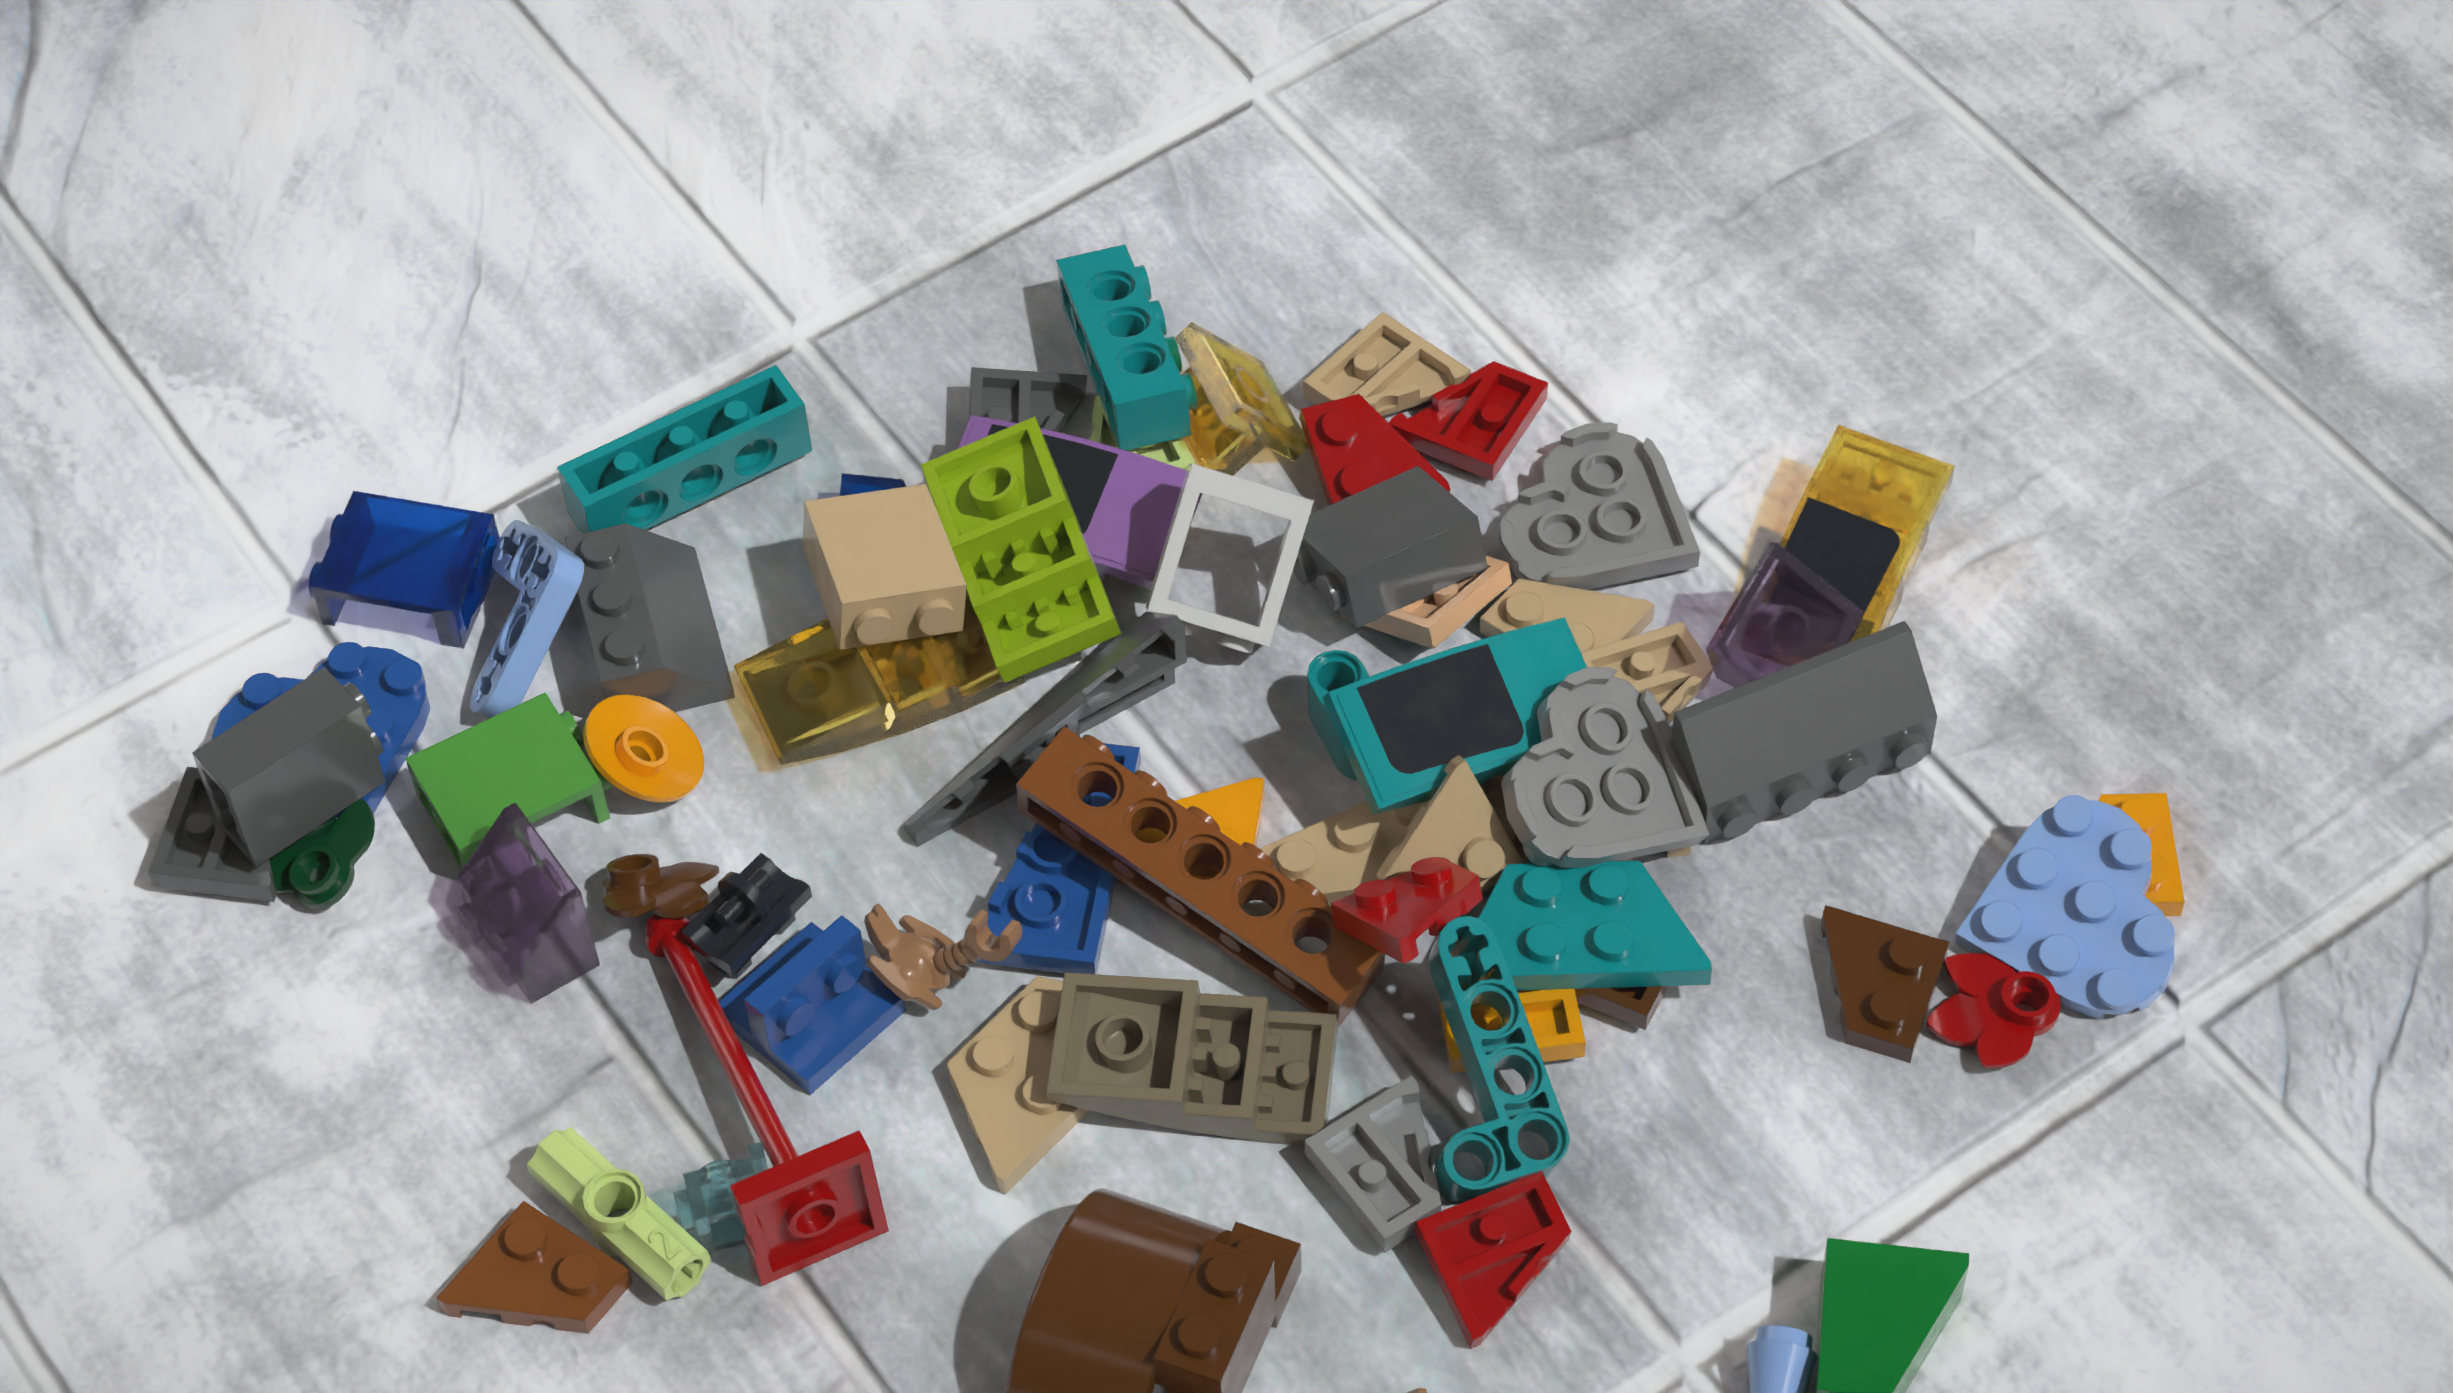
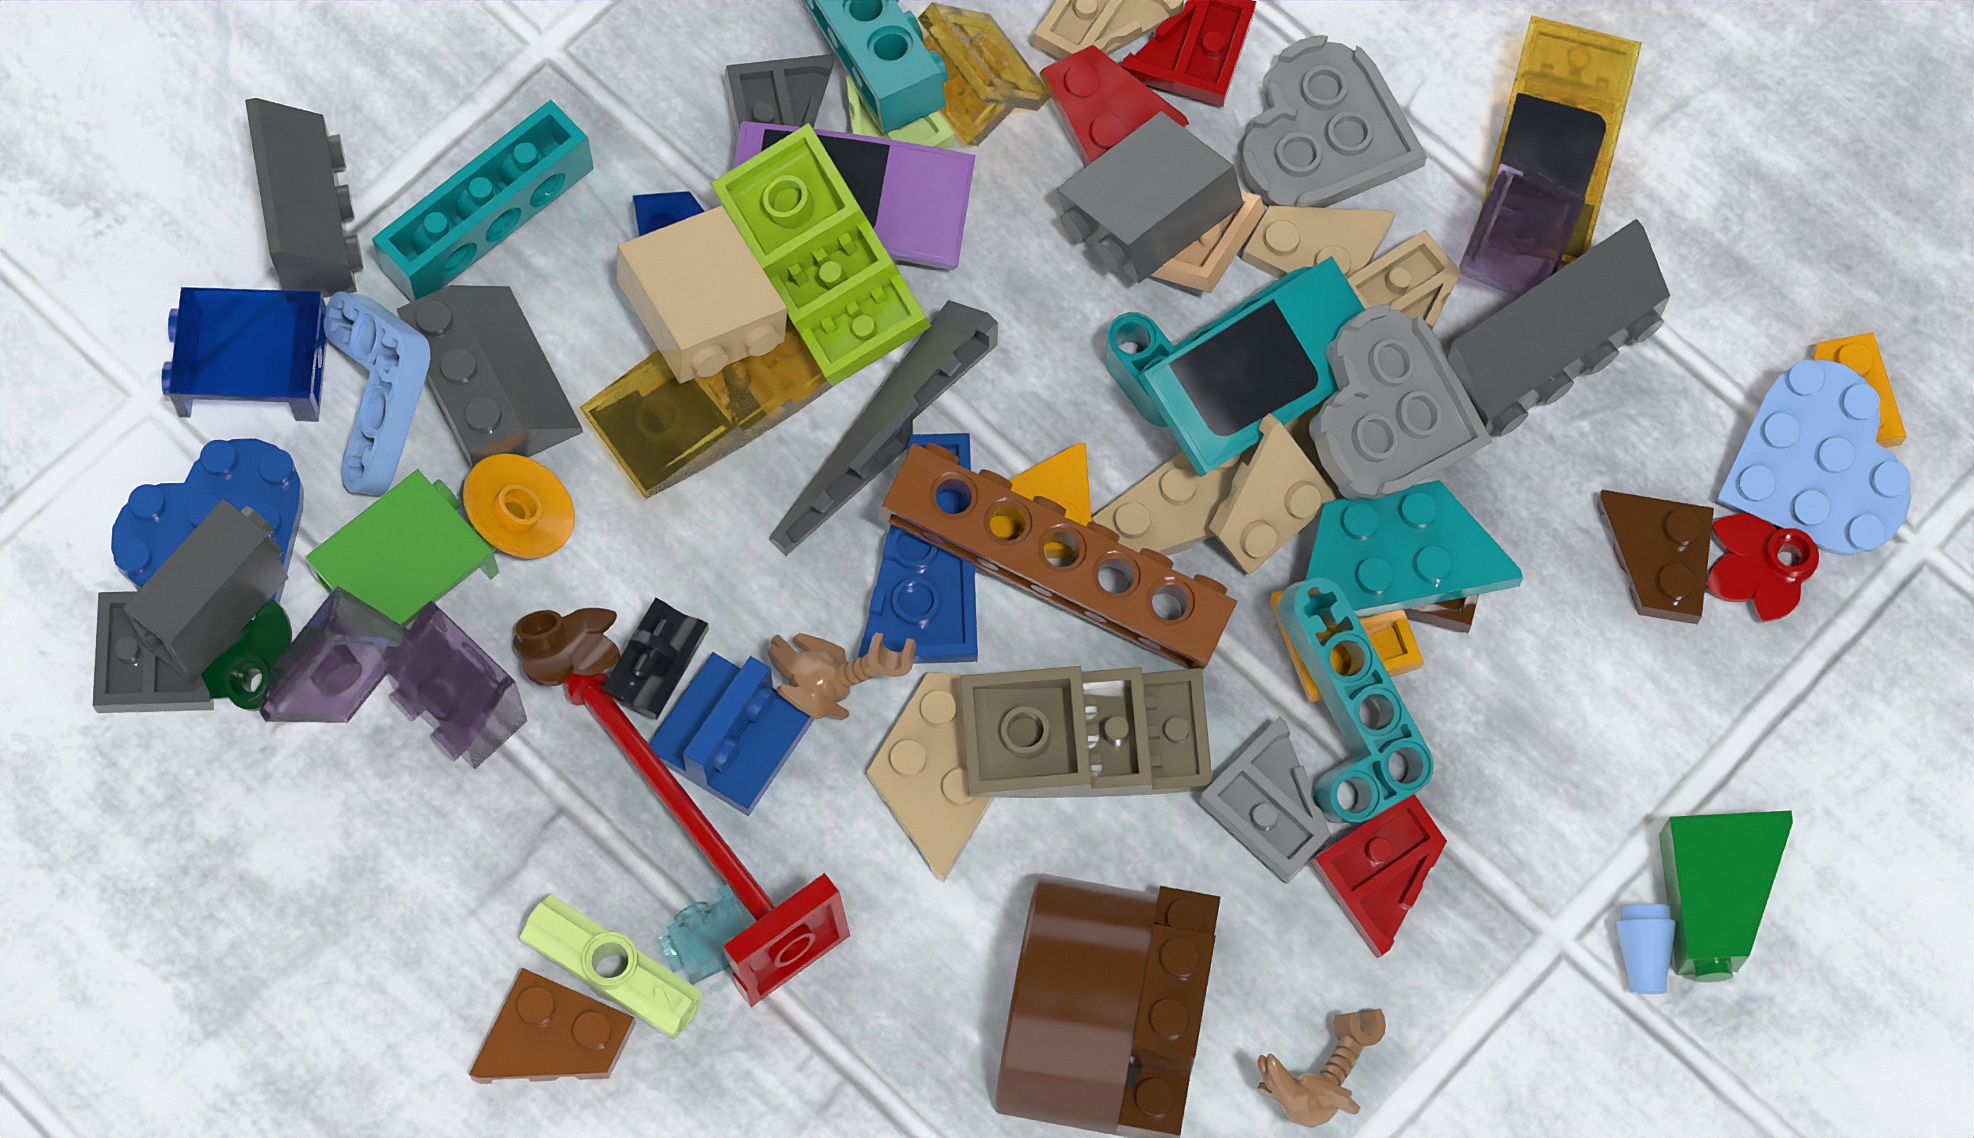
camera: 15 degrees left, 15 degrees up
(403, 862) = (332, 663): none -> slope
(500, 426) = (303, 198): none -> dark grey slope
(1232, 632) = (1020, 177): white window -> none
(1400, 909) = (1255, 570): red wing -> none

